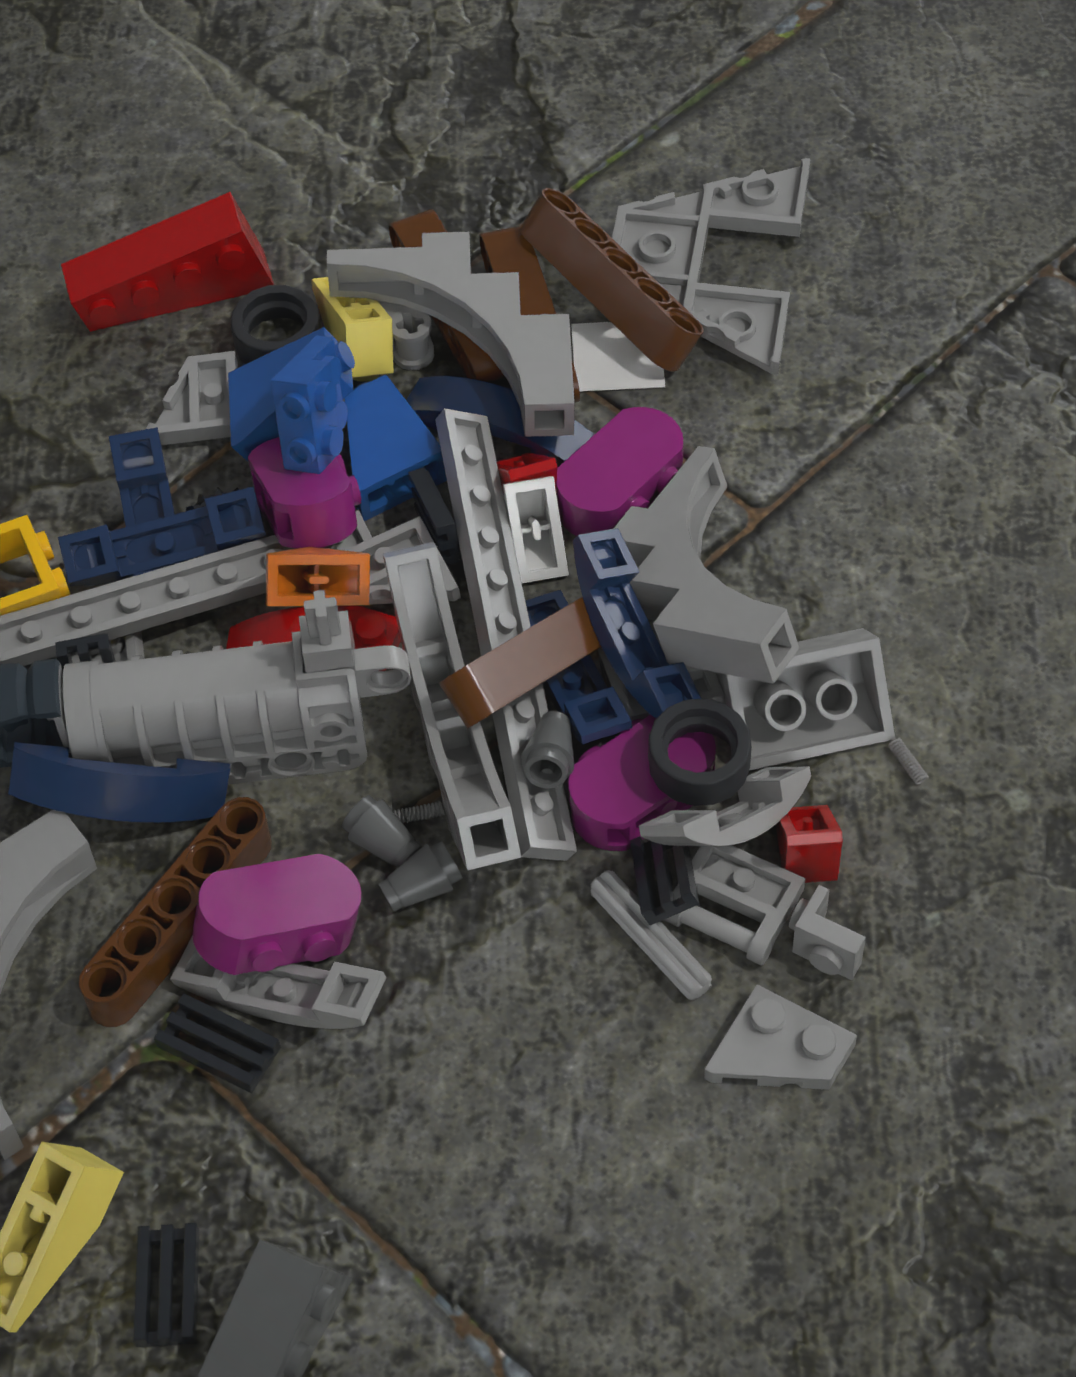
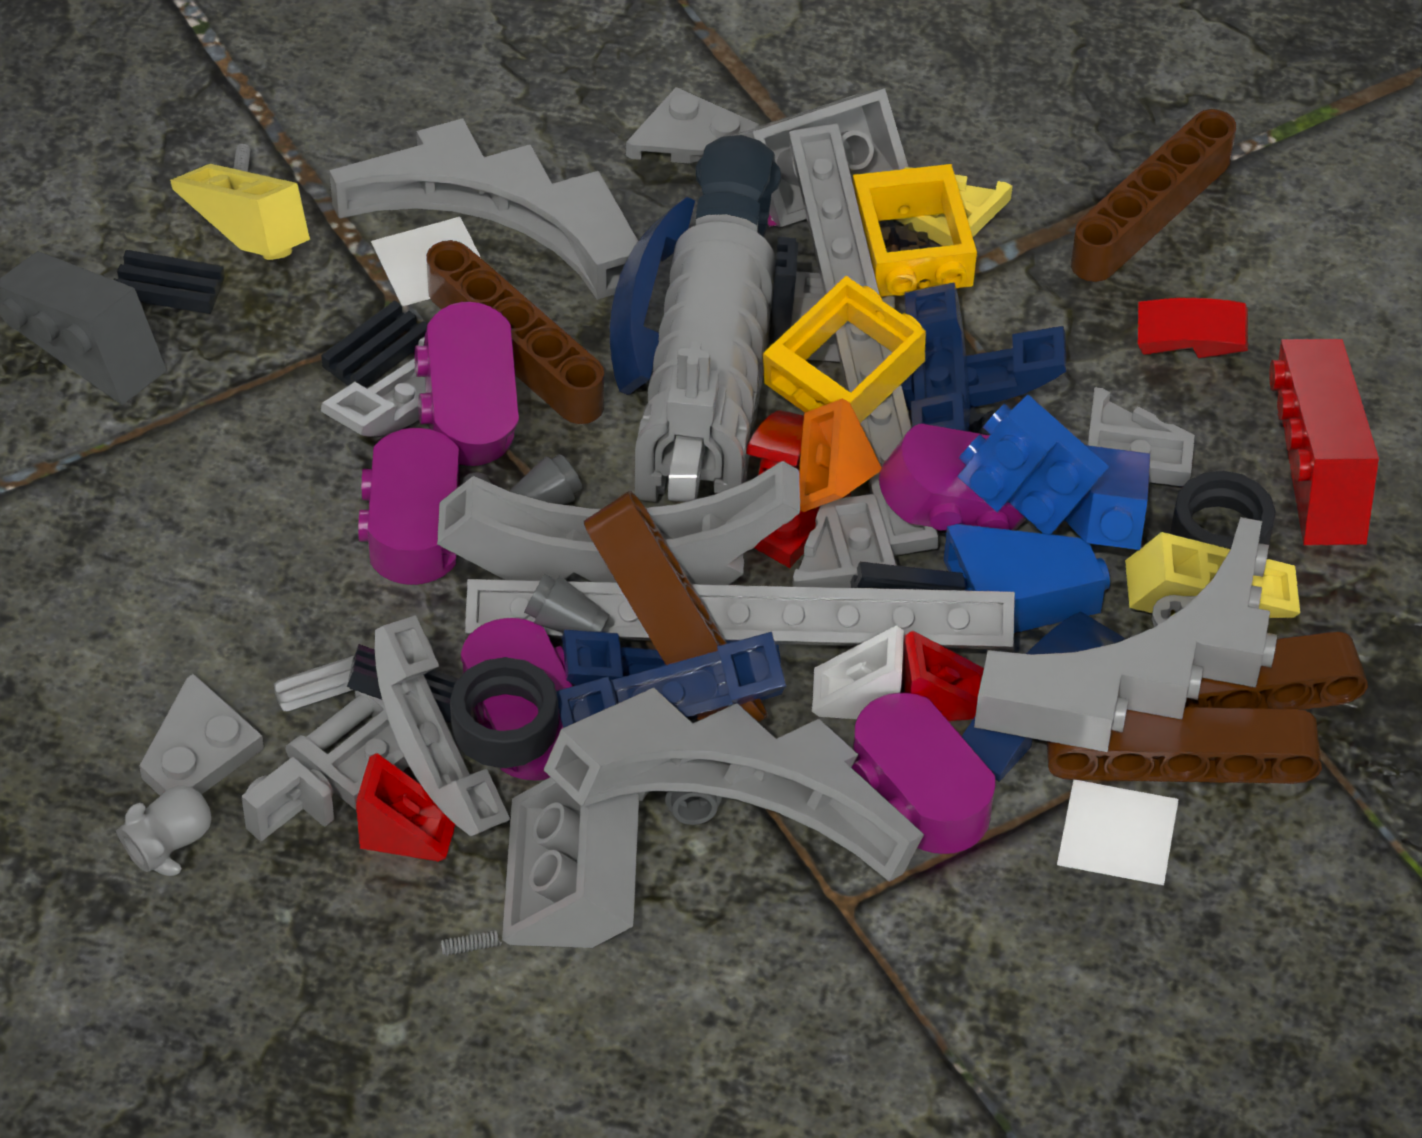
camera: 100 degrees right, 5 degrees down
(50, 383) = (1202, 323): none -> red slope
(65, 1043) = (405, 256): none -> white sticker
(203, 553) = (809, 388): none -> yellow window
(437, 933) = (404, 488): none -> magenta brick
(611, 279) = (1226, 811): reddish brown beam -> none
(670, 243) = (1260, 899): light grey wing -> none
(894, 1028) = (165, 825): none -> light grey animal

